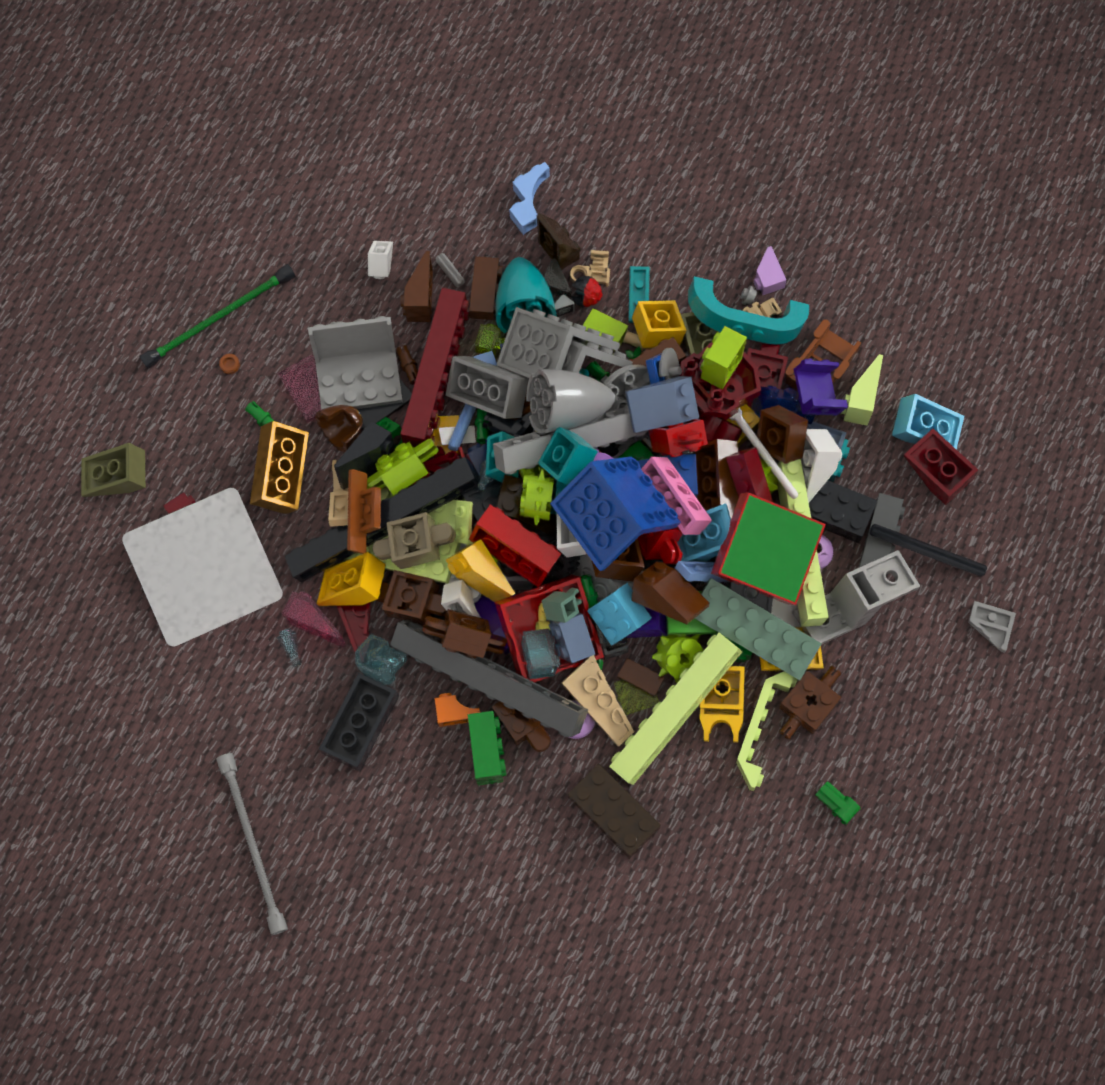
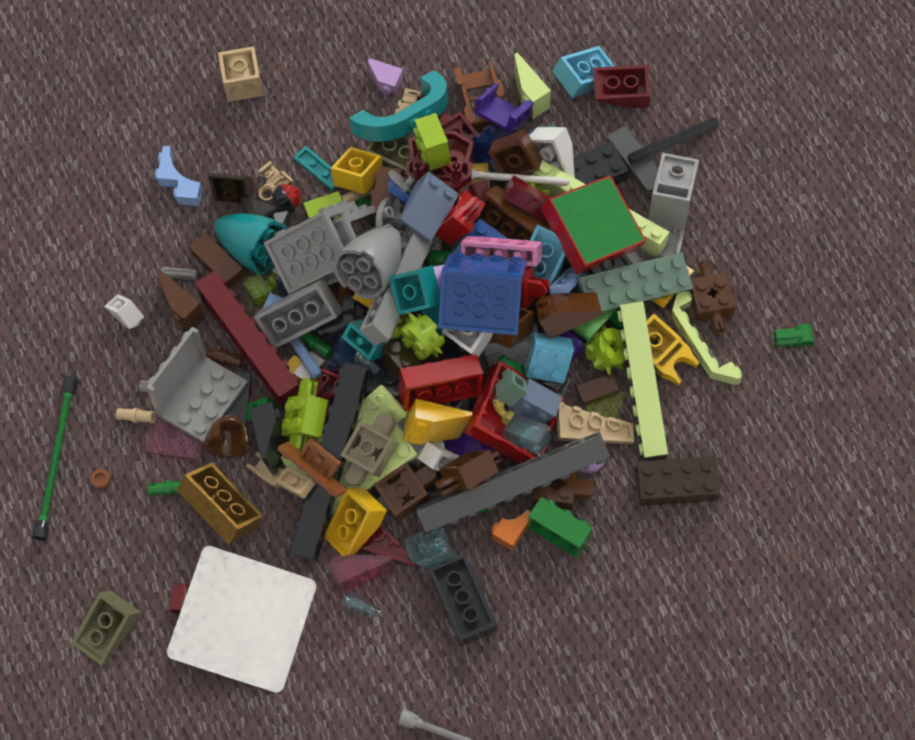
camera: 50 degrees left, 5 degrees down
(301, 343) = (136, 415): none -> tan pin
(661, 162) = (240, 74): none -> tan brick
(748, 295) = (388, 102): light grey plate -> none
(992, 623) = (756, 145): light grey wing -> none

